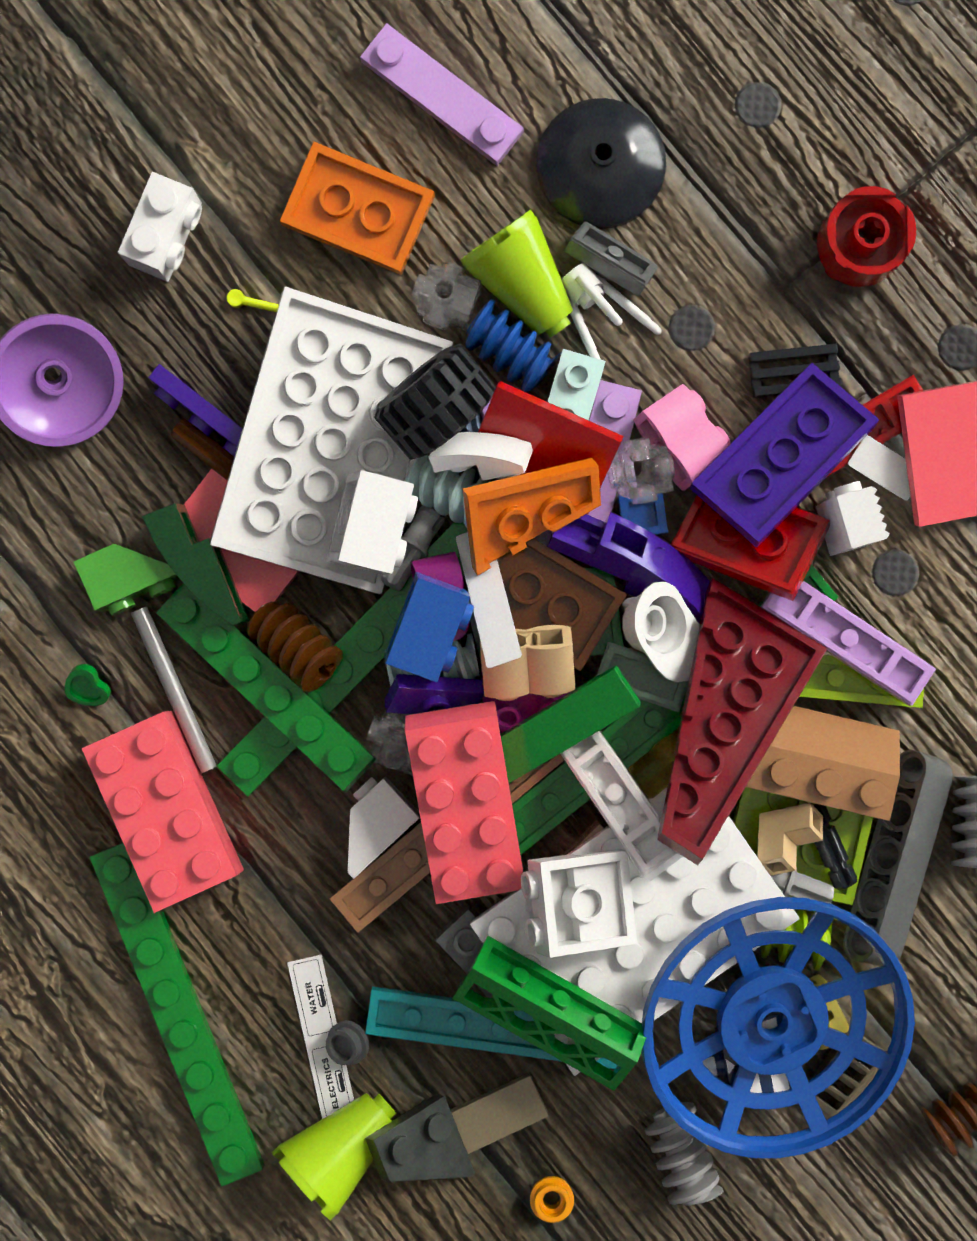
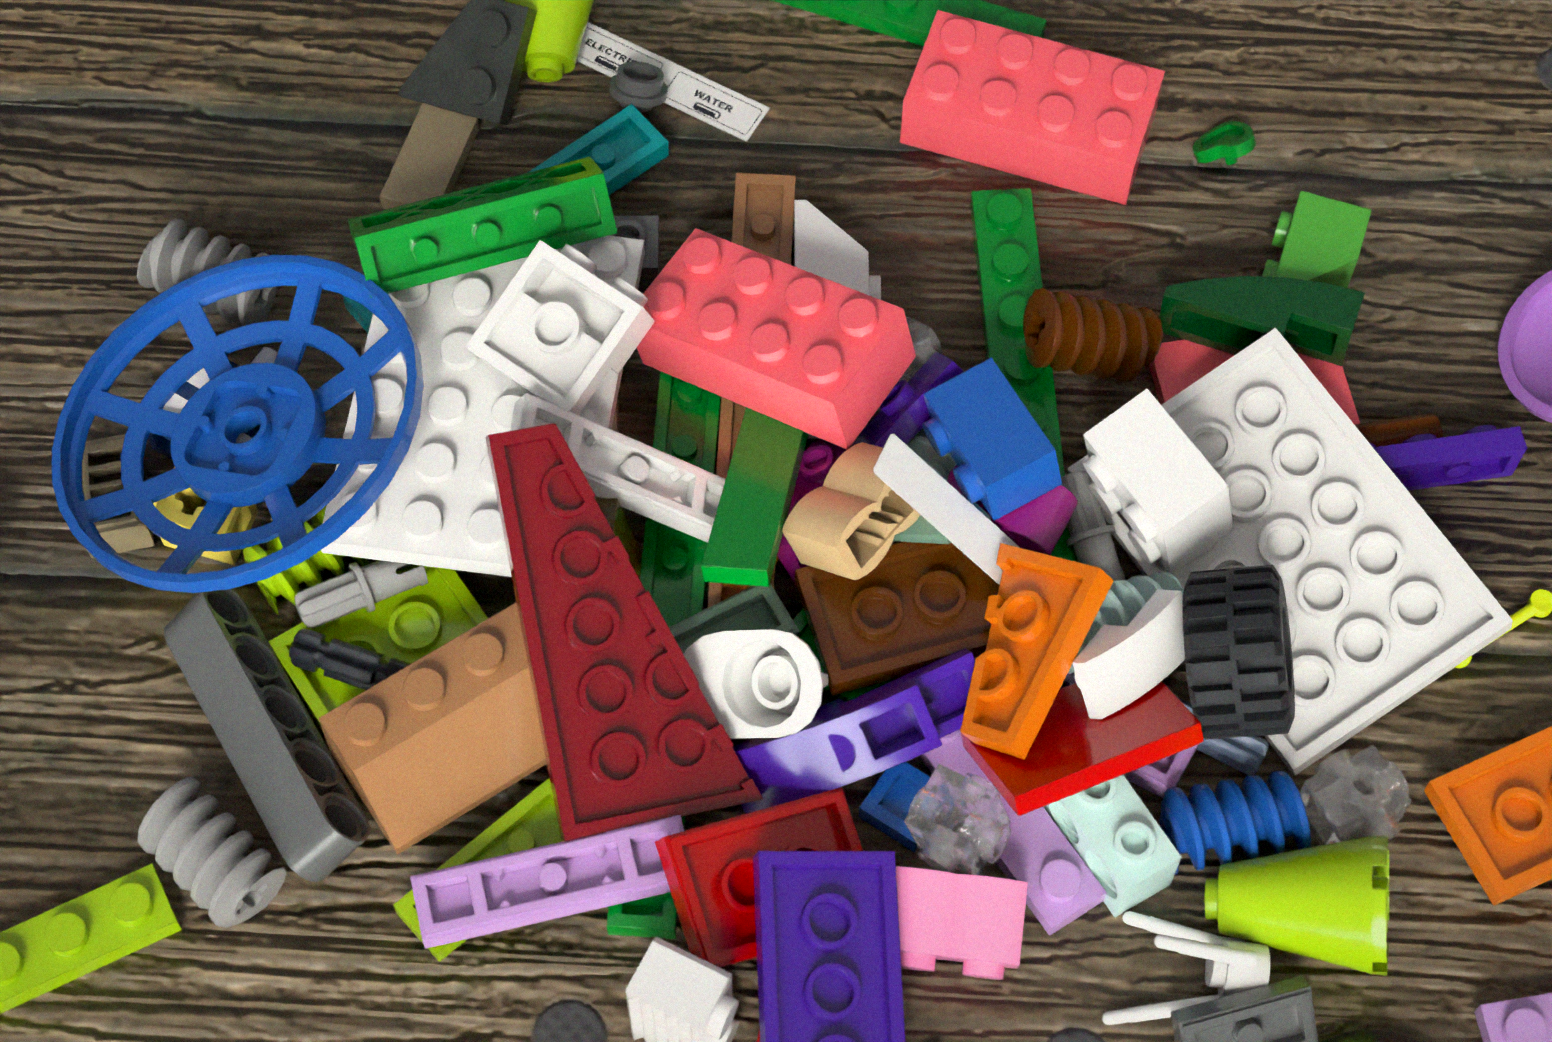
camera: 130 degrees right, 25 degrees down
(173, 690) = (1147, 216): light grey bar -> none
(268, 688) = (1004, 280): green plate -> none
(555, 1212) = (297, 126): light orange plate -> none
(785, 830) = (417, 611): tan piece -> none

